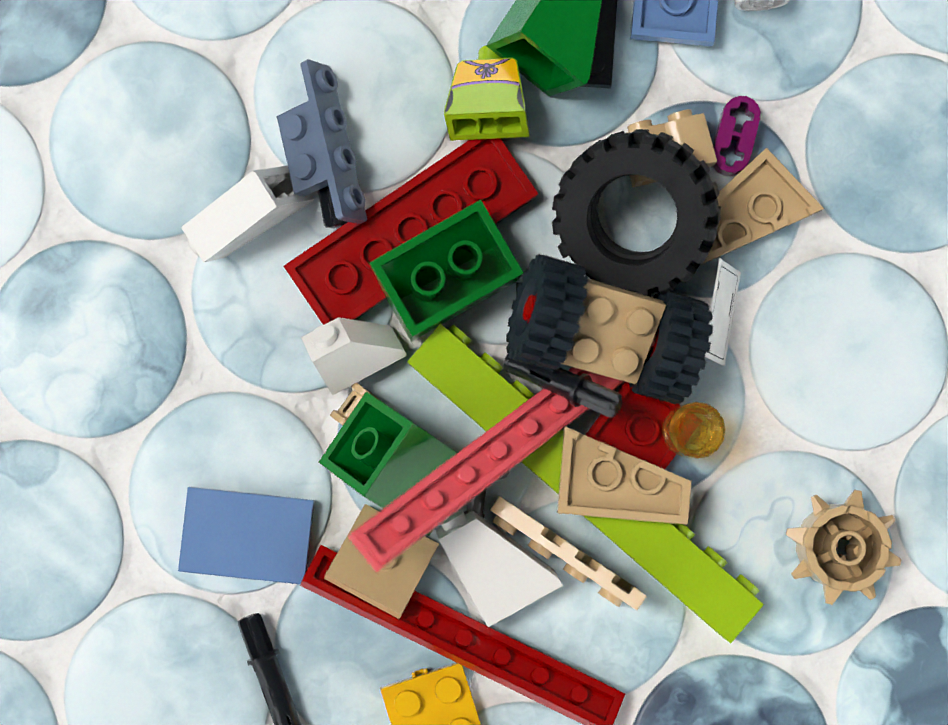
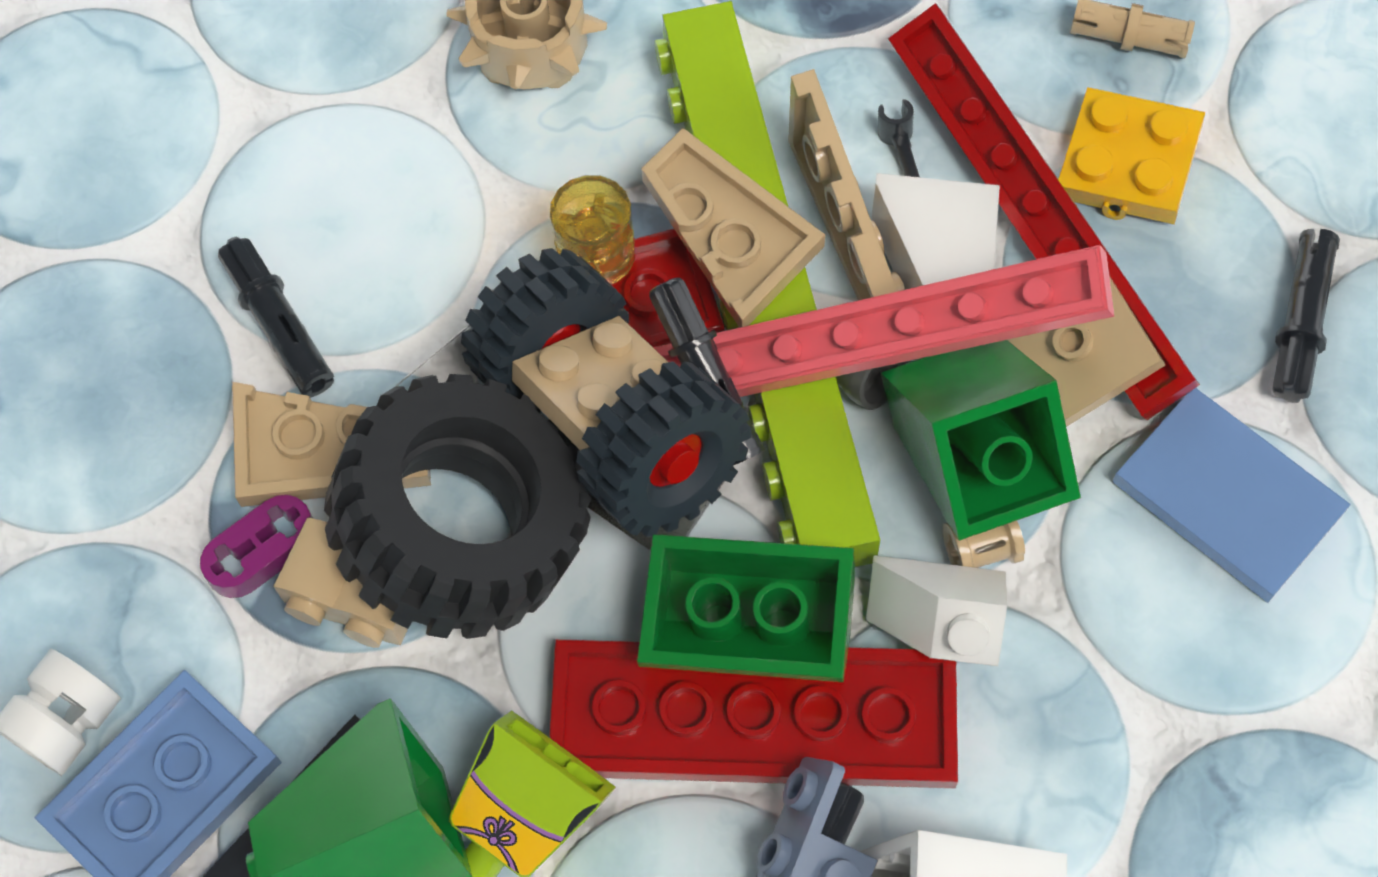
camera: 140 degrees left, 20 degrees down
(570, 631) = (898, 133): none -> black hand
(840, 267) = (264, 297): none -> black axle

